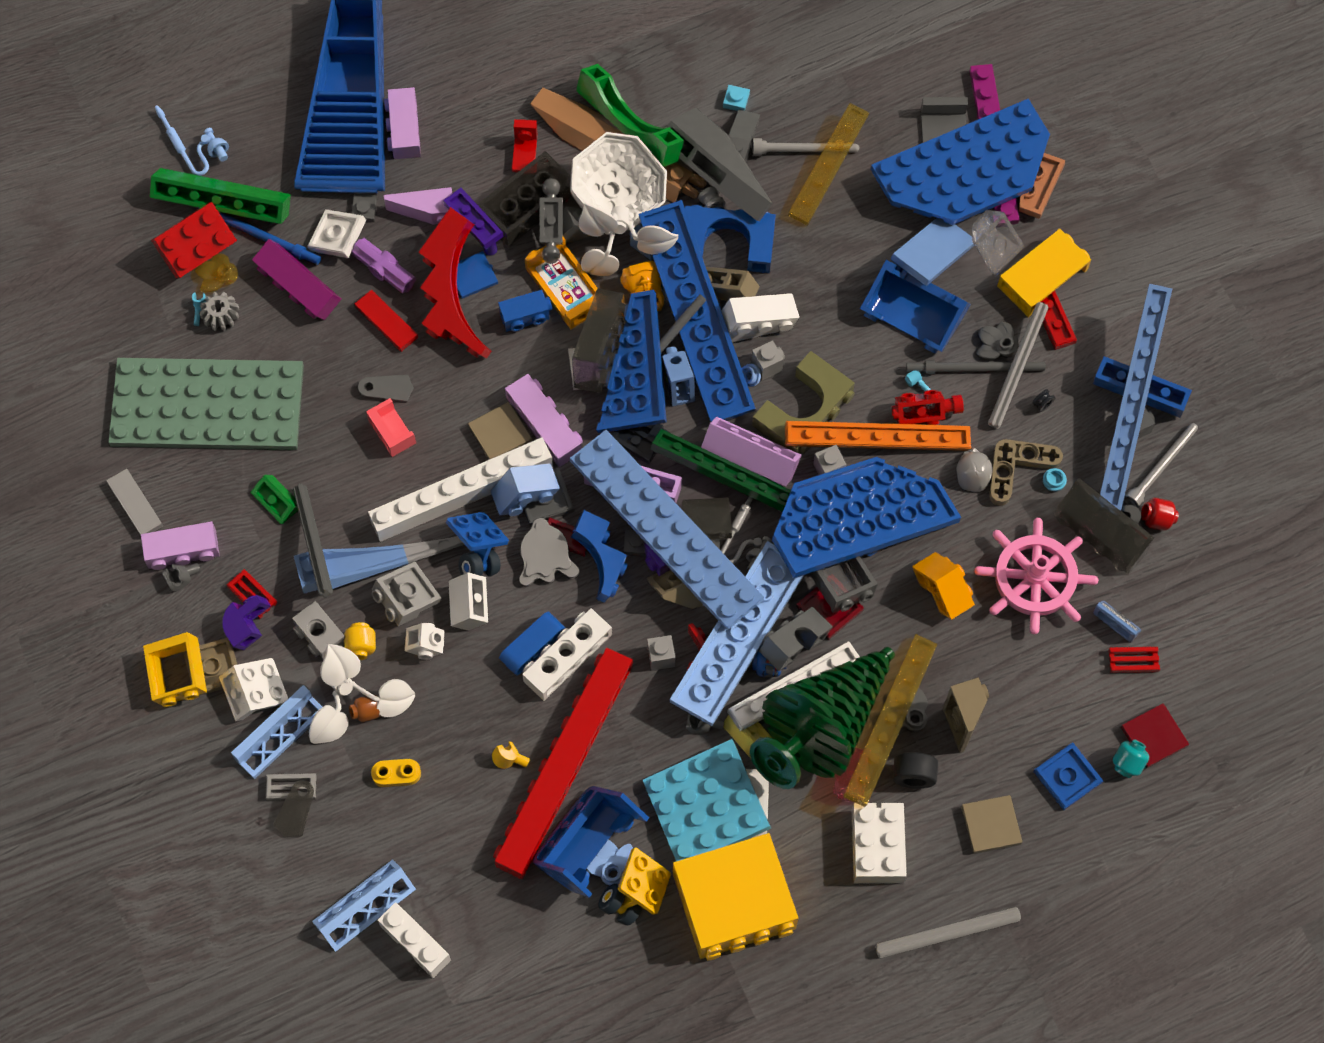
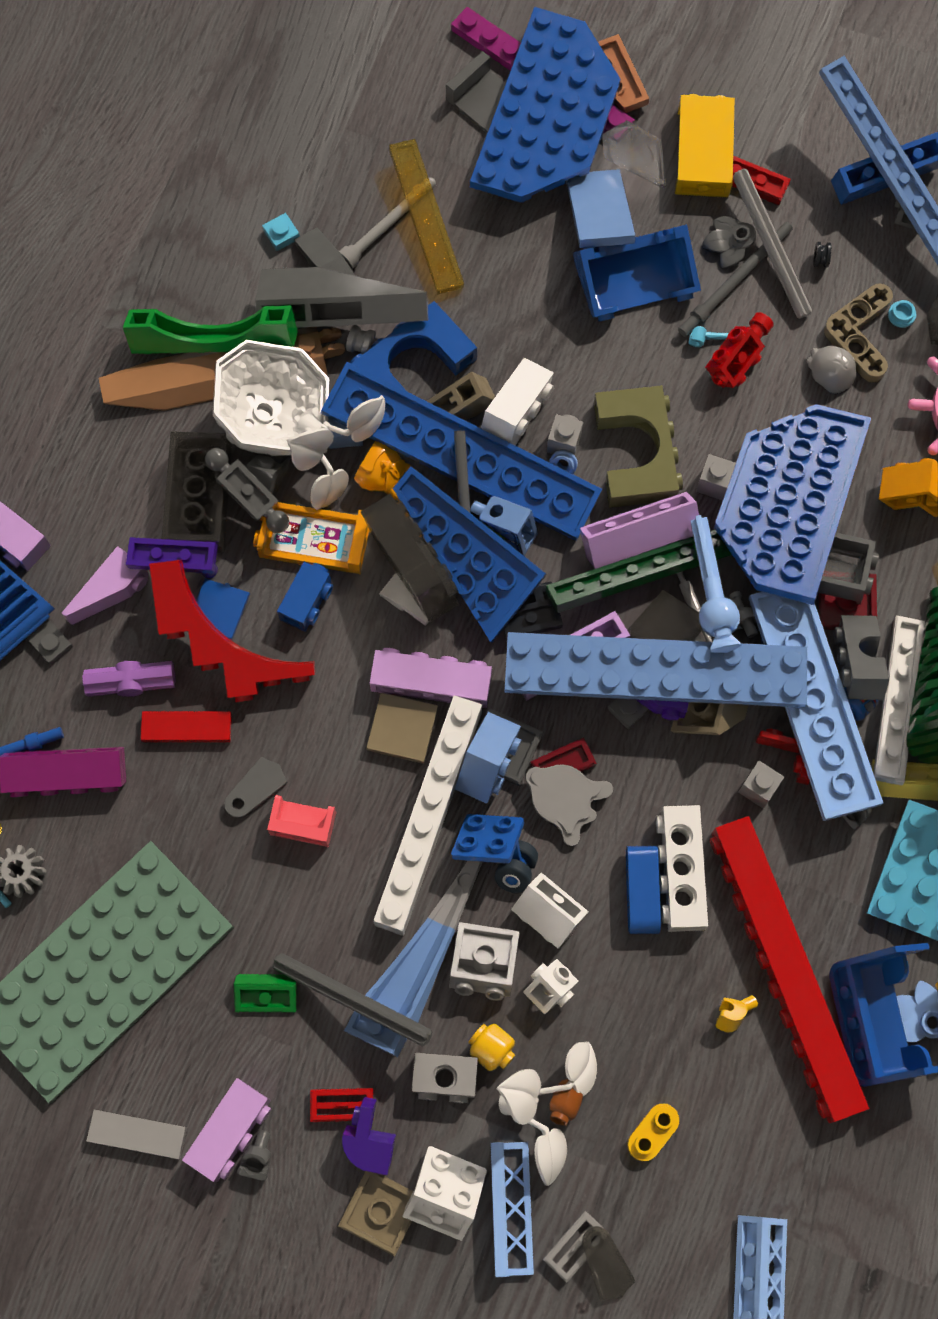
camera: 45 degrees left, 5 degrees up
(168, 647) = (340, 1276): yellow window -> none
(336, 233) = (52, 690): white tile -> none
(414, 939) = (842, 1269): white arch -> none
(524, 144) = (140, 446): red bracket -> none
(592, 534) = (632, 750): blue arch -> none
(732, 530) = (718, 615): none -> light blue piece
(877, 435) = (727, 415): orange tile -> none

